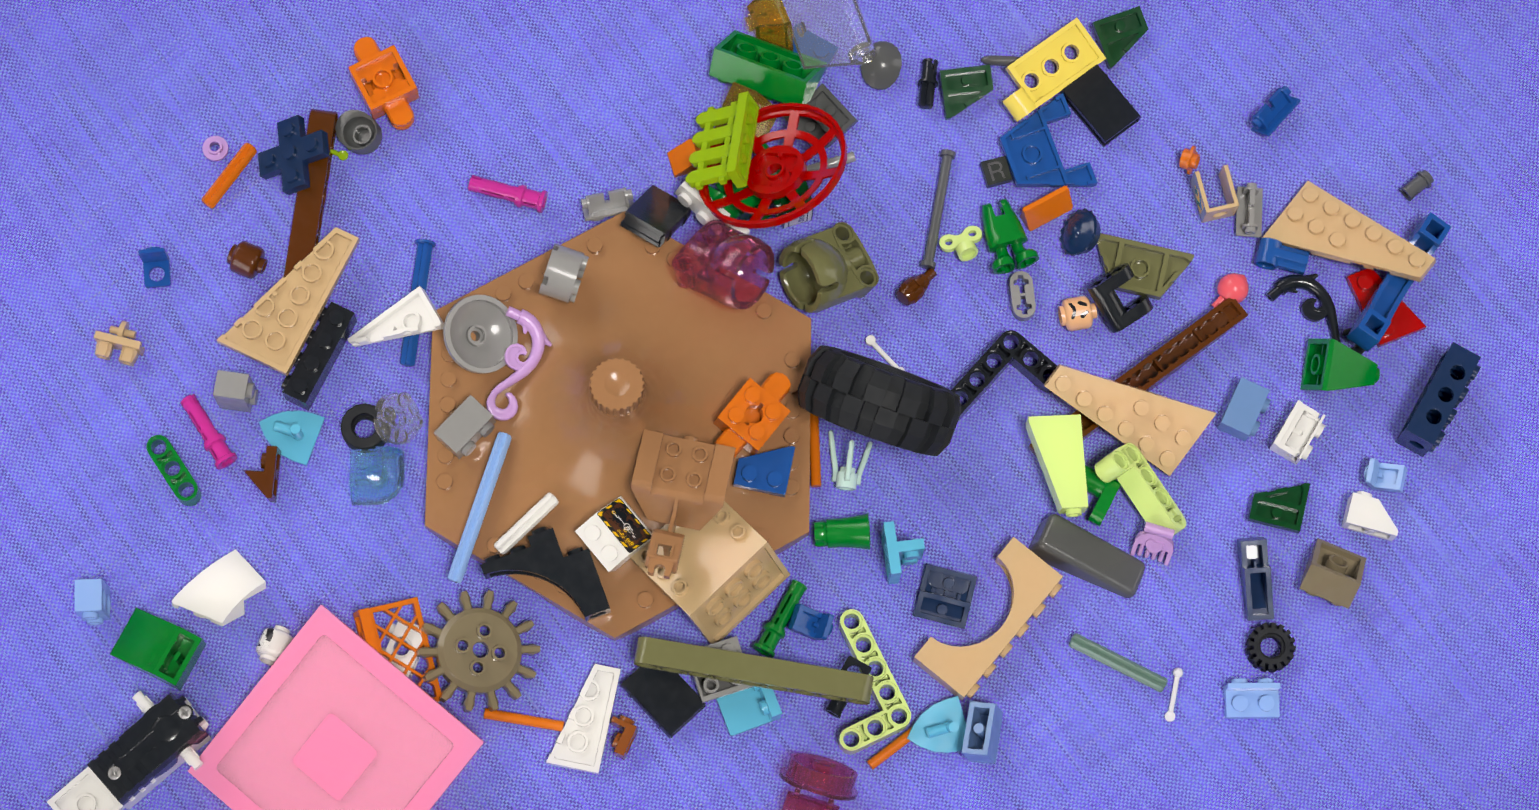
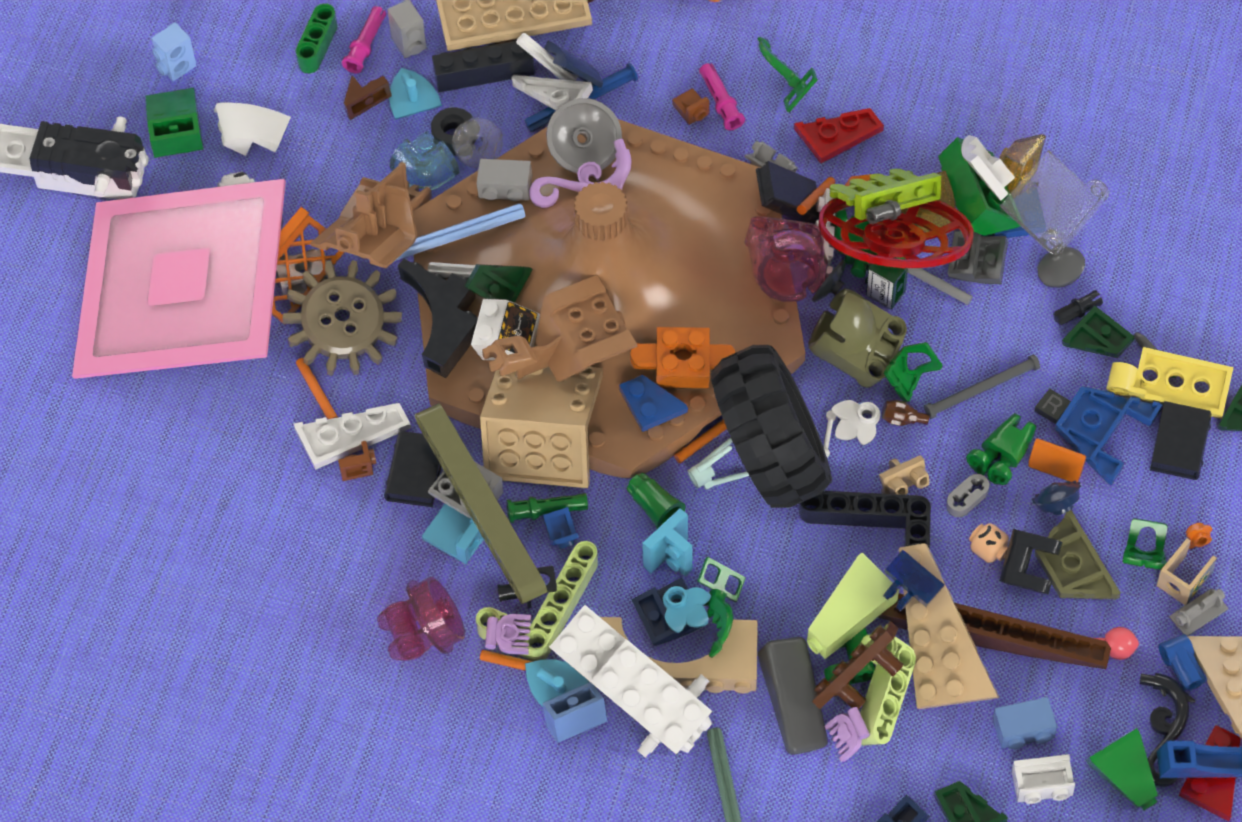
camera: 60 degrees right, 15 degrees down
(363, 303) = (543, 57): none -> white axle
(389, 285) = (574, 64): none -> dark blue slope
(422, 561) = (377, 219): none -> medium nougat piece
(497, 222) = (691, 106): none -> dark orange bracket
(536, 124) = (799, 86): none -> green piece
(562, 273) = (680, 155): light grey brick -> none
(568, 506) = (498, 281): none -> dark green wing
(620, 133) = (835, 135): none -> red wing
(671, 196) = (813, 197): none -> orange bar
(755, 157) = (889, 210): none -> dark grey pin
(761, 49) = (989, 168): none -> white slope
(769, 237) = (832, 283): none -> black dish
(878, 735) = (506, 633): none -> lavender piece
(884, 261) = (907, 380): none -> green piece
(892, 329) = (853, 423): none -> white plate
(962, 243) = (970, 424): yellowish green piece -> none
(962, 581) = (689, 610): none -> medium azure plate
(968, 331) = (904, 475): none -> tan hips
(976, 557) = (718, 608): none -> green piece
(1007, 671) = (635, 683): none -> white piece
(1084, 397) = (914, 579): none -> clear blue hinge
(1120, 485) = (861, 656): none -> reddish brown plate
(1183, 209) = (1150, 559): none -> green piece

